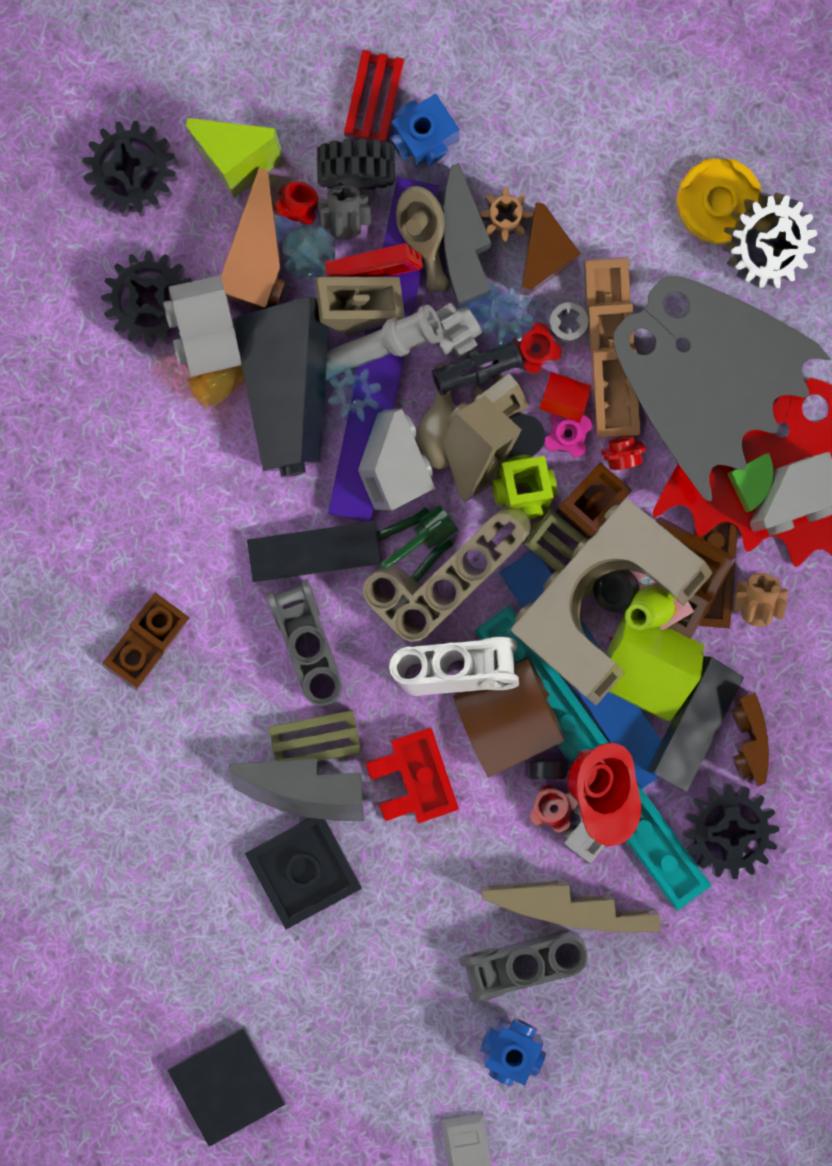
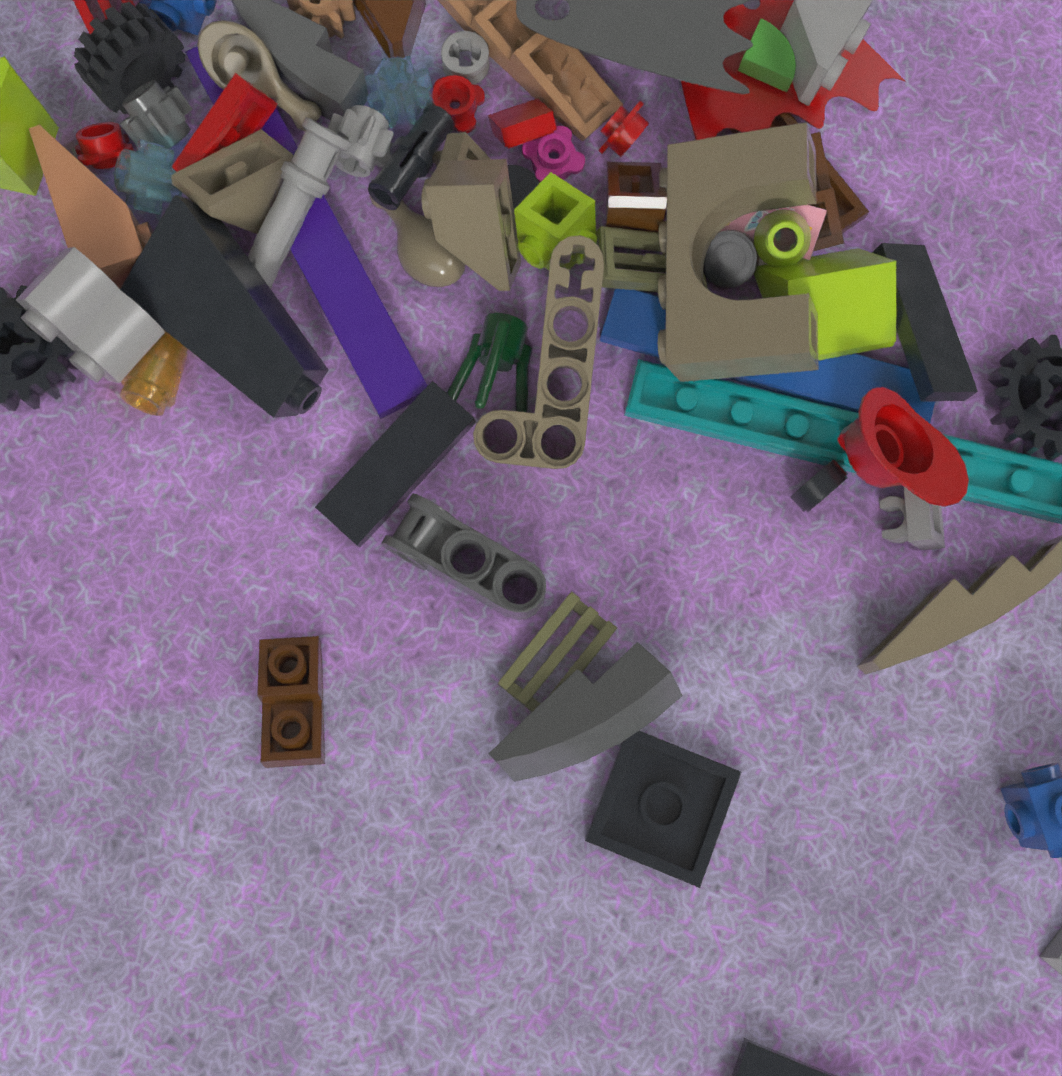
camera: 40 degrees left, 10 degrees down
(351, 382) = (301, 254): clear light blue gear -> none
(392, 463) = (403, 304): light grey slope -> none
(423, 776) = (701, 598): red plate -> none
(486, 667) = (653, 425): white piece -> none
(504, 978) = (952, 738): dark grey piece -> none
(511, 722) = (739, 463): reddish brown slope -> none
(542, 812) = (867, 506): plate -> none
(753, 752) = (1005, 302): reddish brown slope -> none
(760, 599) = (876, 157): medium nougat gear -> none

